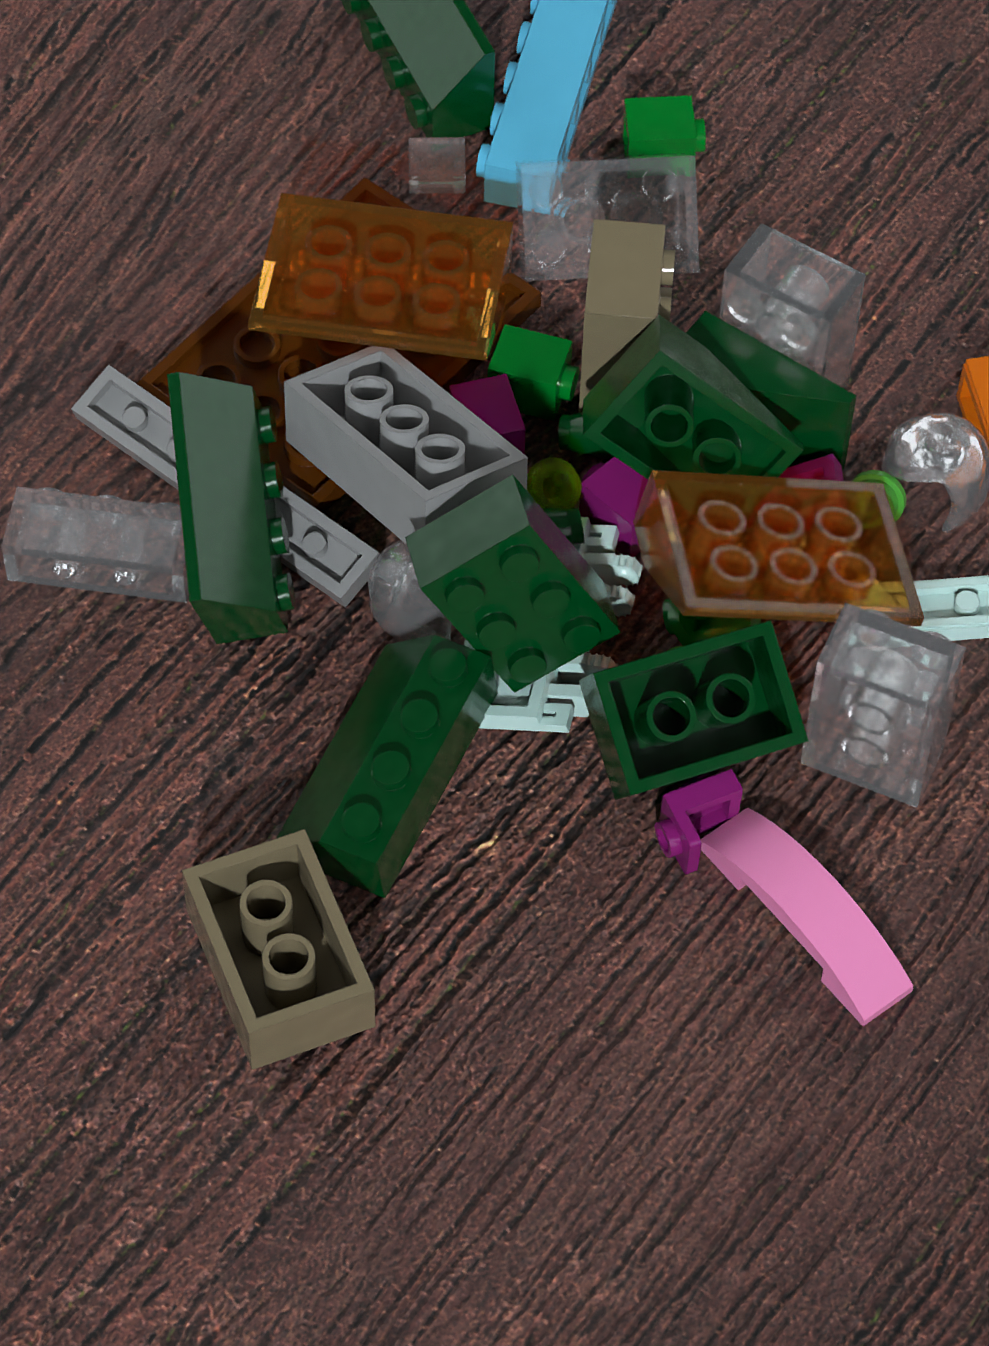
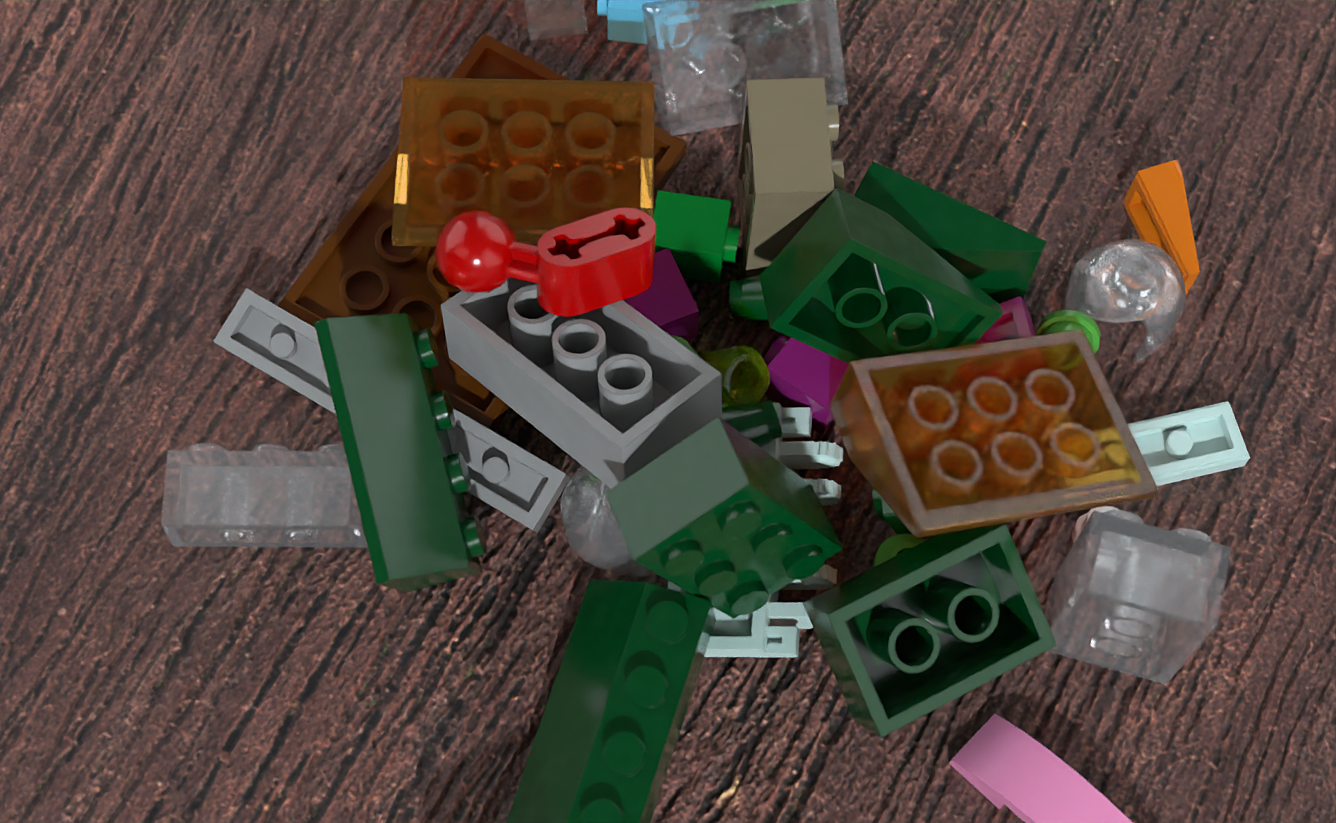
camera: 10 degrees left, 10 degrees up
(407, 355) = (573, 264): none -> red beam
(694, 809) = (942, 730): magenta bracket -> none
(795, 302) = (964, 140): clear brick -> none

